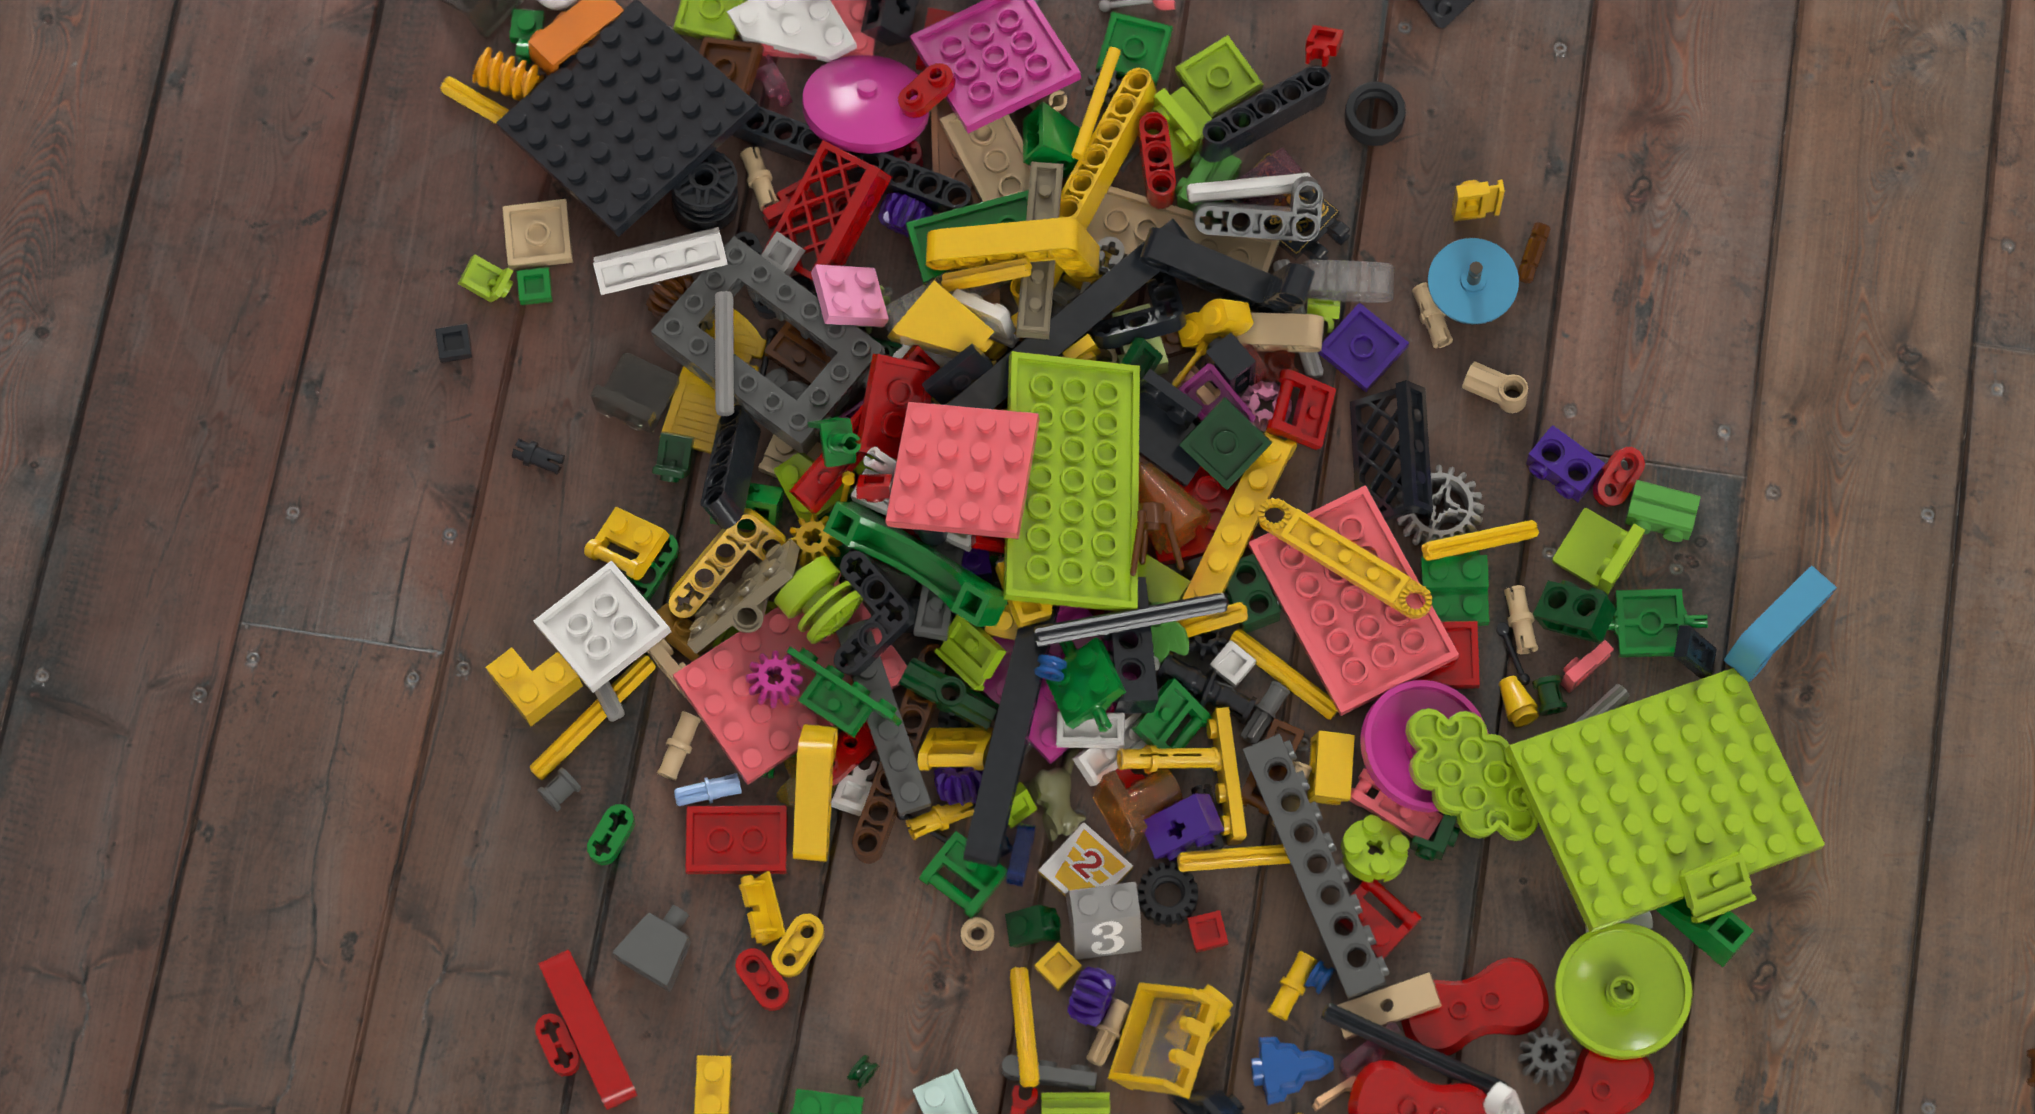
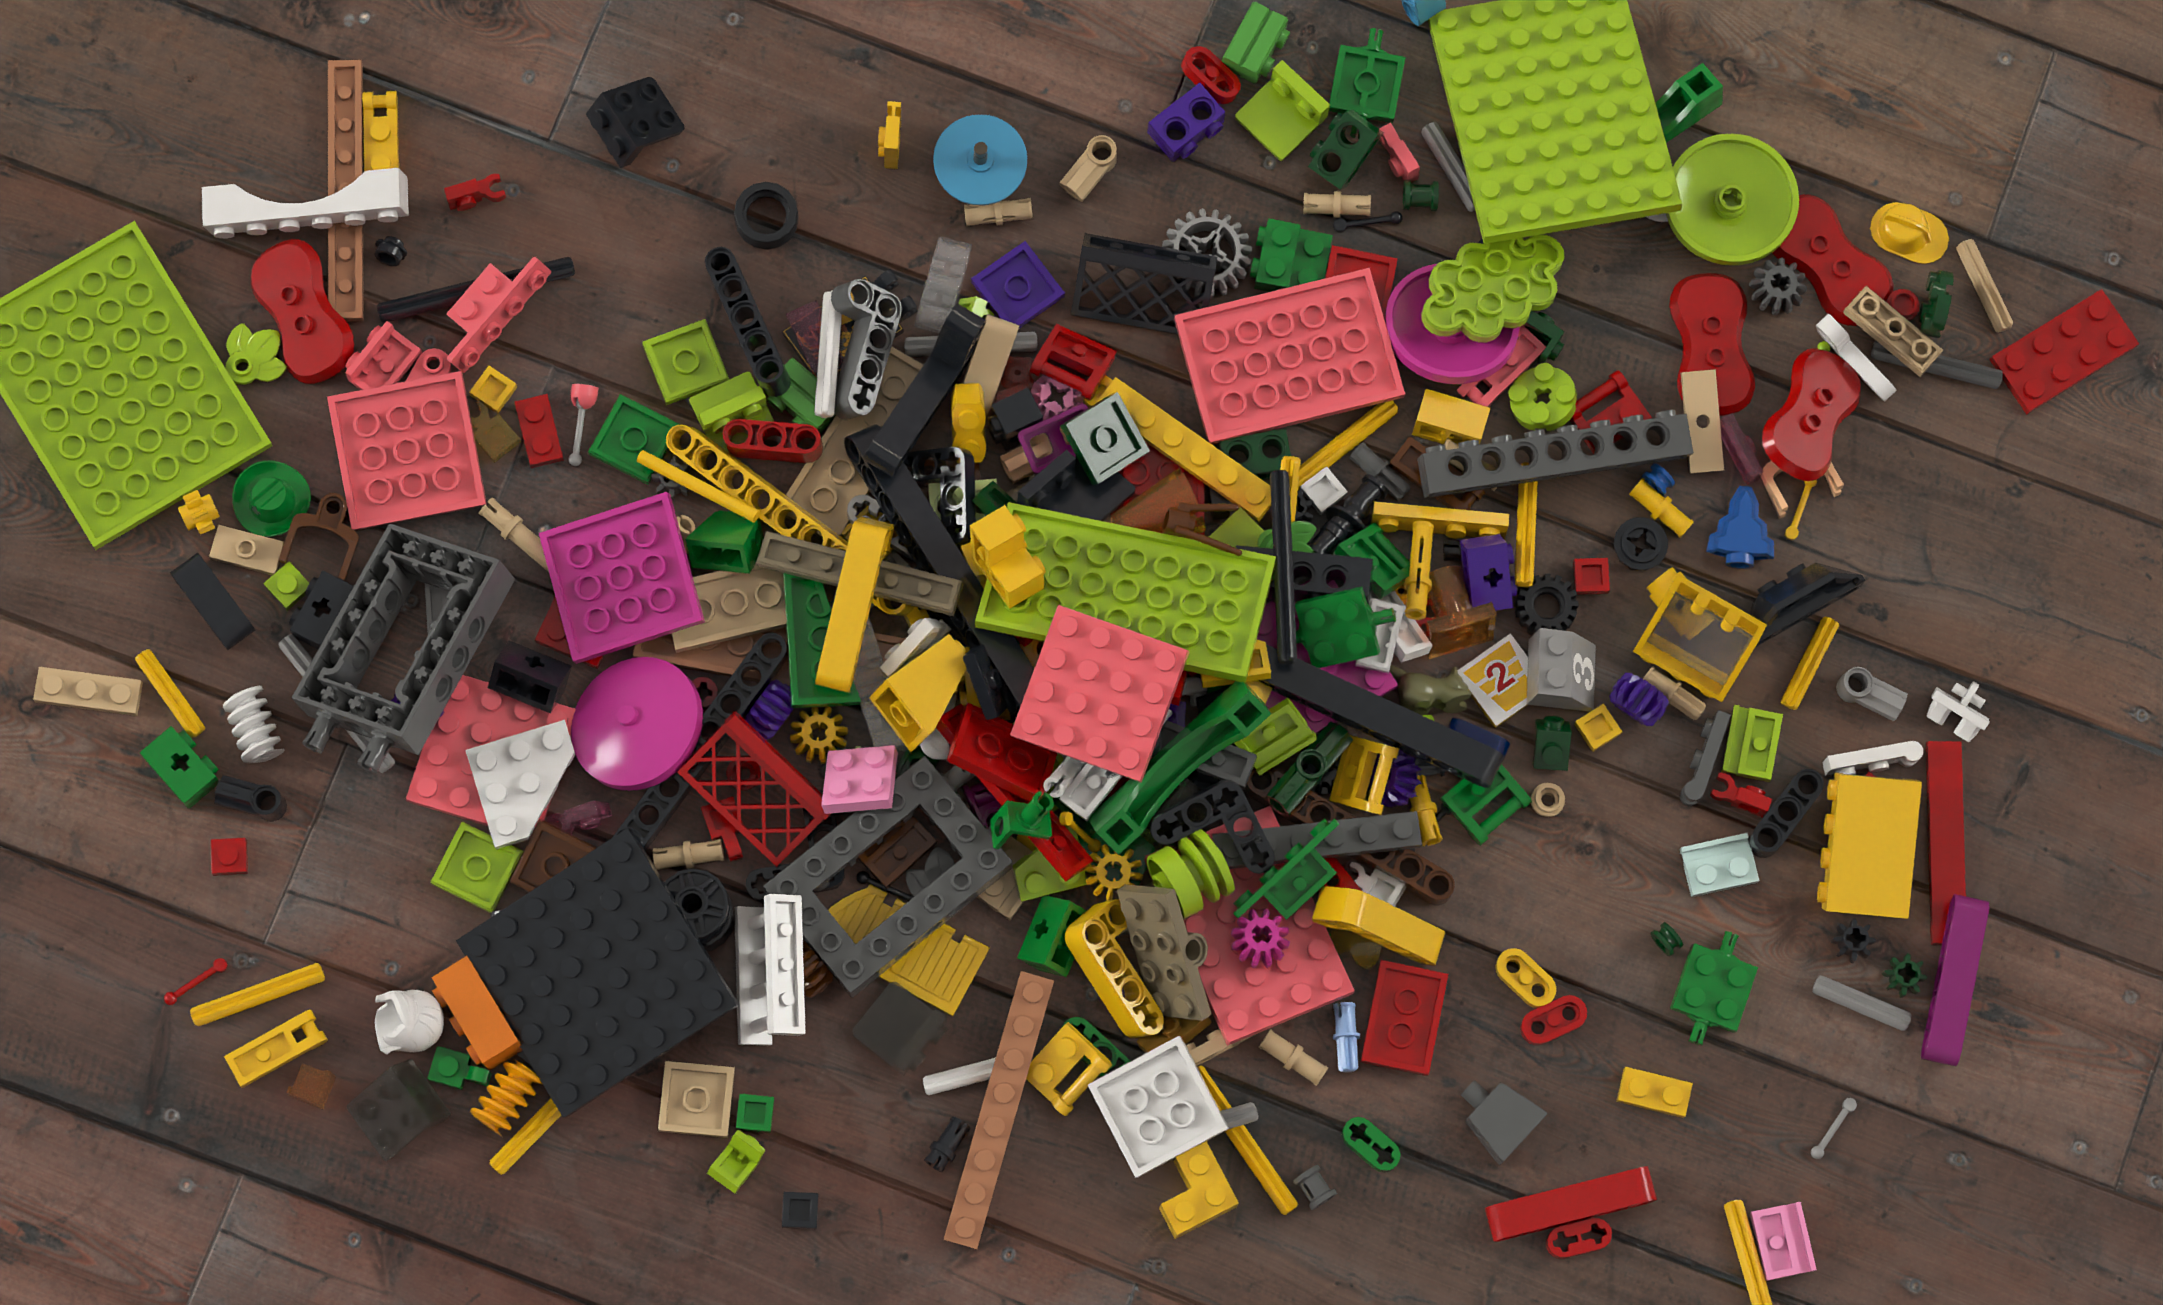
camera: 90 degrees left, 5 degrees up
(575, 492) = (998, 1110): none -> nougat plate
(608, 466) = (958, 1077): none -> white axle
(674, 456) = (981, 1002): dark green bracket -> none
(724, 354) = (899, 918): light grey axle -> none
(730, 468) = (1021, 938): black beam -> none
(765, 918) = (1488, 1002): yellow hinge -> none
(783, 253) = (790, 841): light grey plate -> none
(874, 487) = (1088, 790): red plate -> none
(892, 254) = (805, 734): none -> yellow gear
(928, 90) = (647, 652): red plate -> none
(986, 274) = (876, 632): yellow axle -> none
(1024, 1027) = (1658, 770): yellow axle -> none
(1050, 667) = (1319, 655): blue bush -> none
(1076, 361) = (1003, 558): none -> yellow brick
(1200, 351) = (993, 441): yellow hinge -> none
(1264, 964) = (1655, 539): none -> black gear
(1323, 43) = (678, 247): red plate -> none
(1345, 558) = (1250, 351): yellow plate -> none
(1408, 1048) = (1754, 405): black axle -> none
(1479, 540) = (1253, 220): yellow axle -> none
(1517, 702) = (1420, 228): yellow cone -> none
(1533, 252) = (951, 97): reddish brown axle -> none
(1695, 651) = (1411, 47): black plate -> none
(1717, 887) = (1659, 82): lime plate -> none

